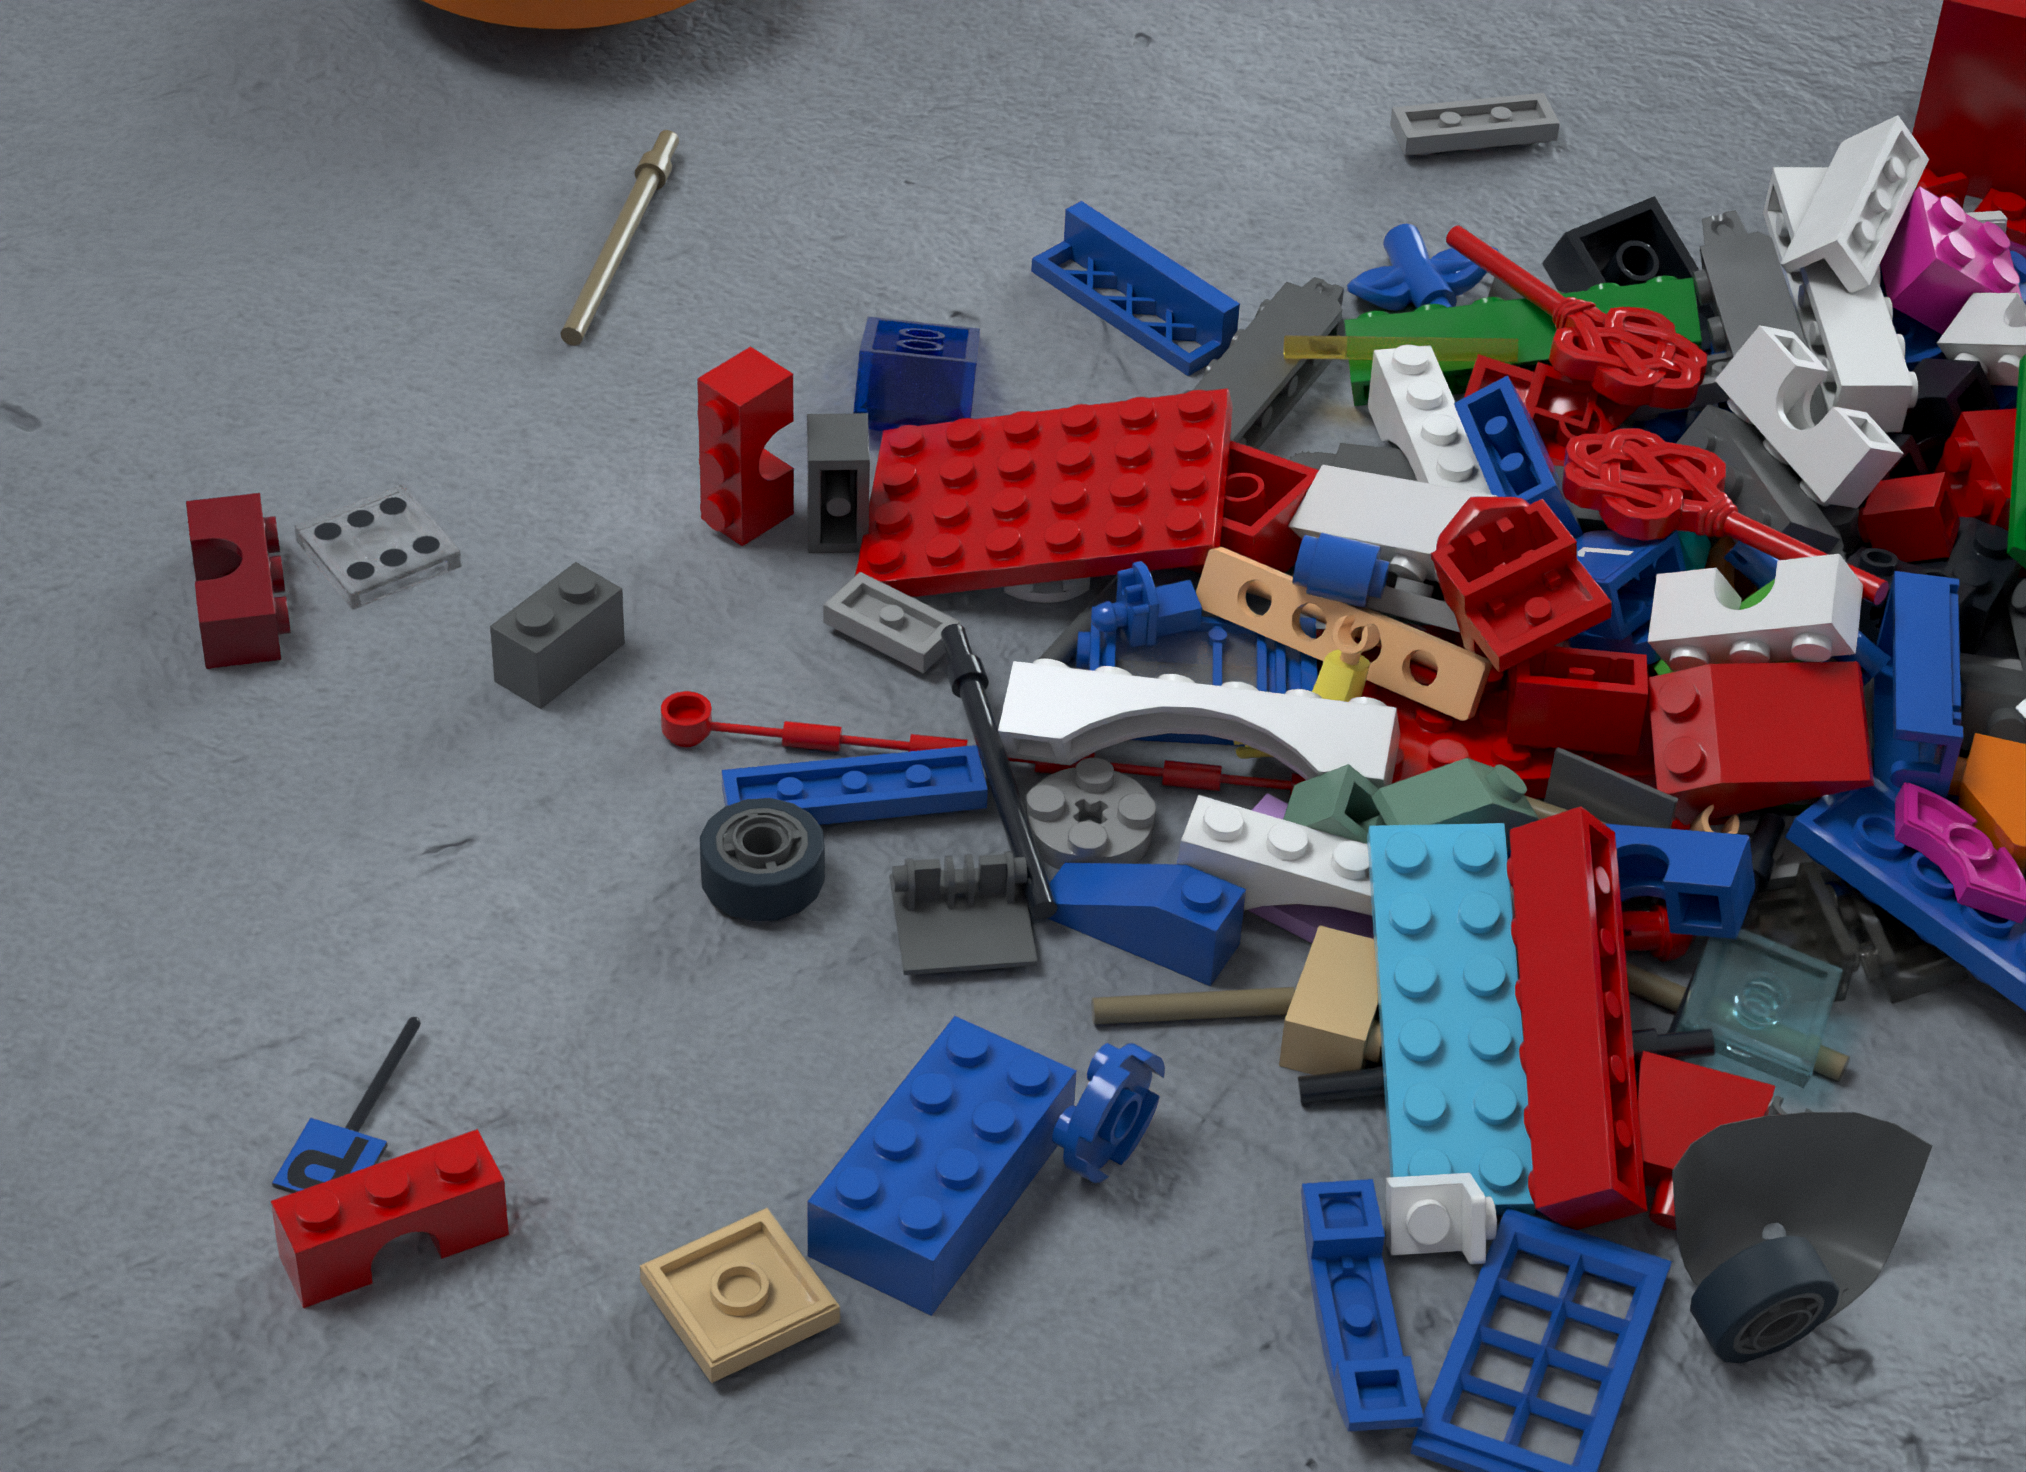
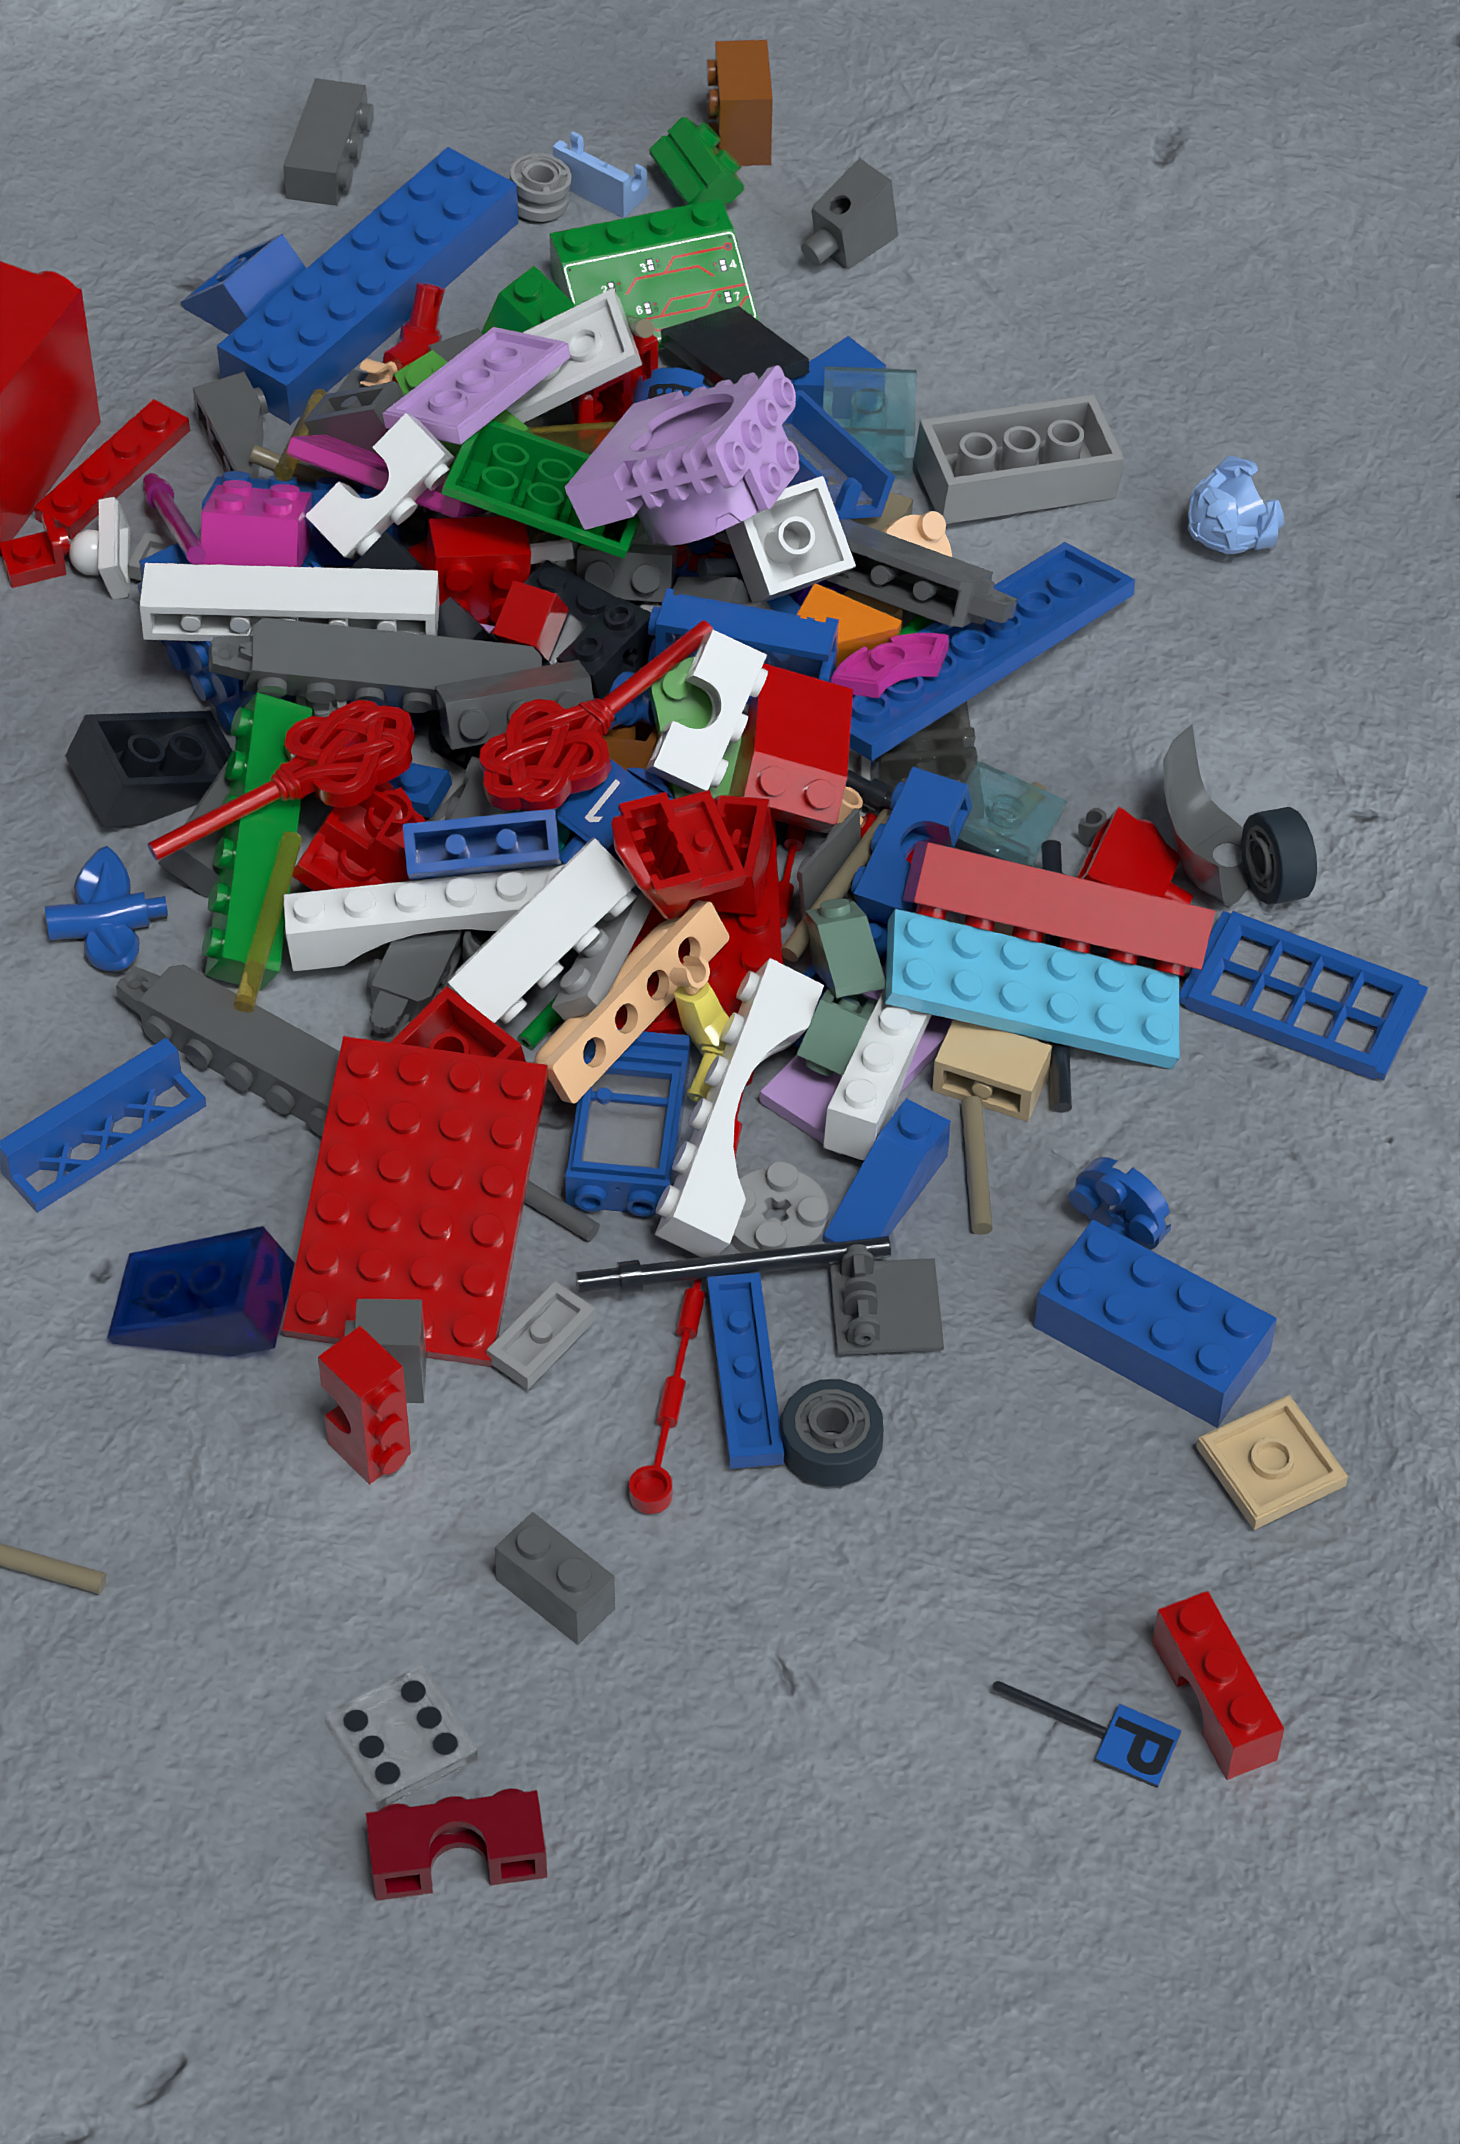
camera: 85 degrees left, 10 degrees up
(1147, 609) = (591, 1129): blue piece -> none
(1340, 569) = (609, 974): blue brick -> none
(1355, 1307) = (1281, 1095): blue slope -> none
(1439, 1216) = (1194, 1026): white bracket -> none
(1773, 388) = (509, 639): white arch -> none
(1859, 204) = (216, 559): white panel -> none

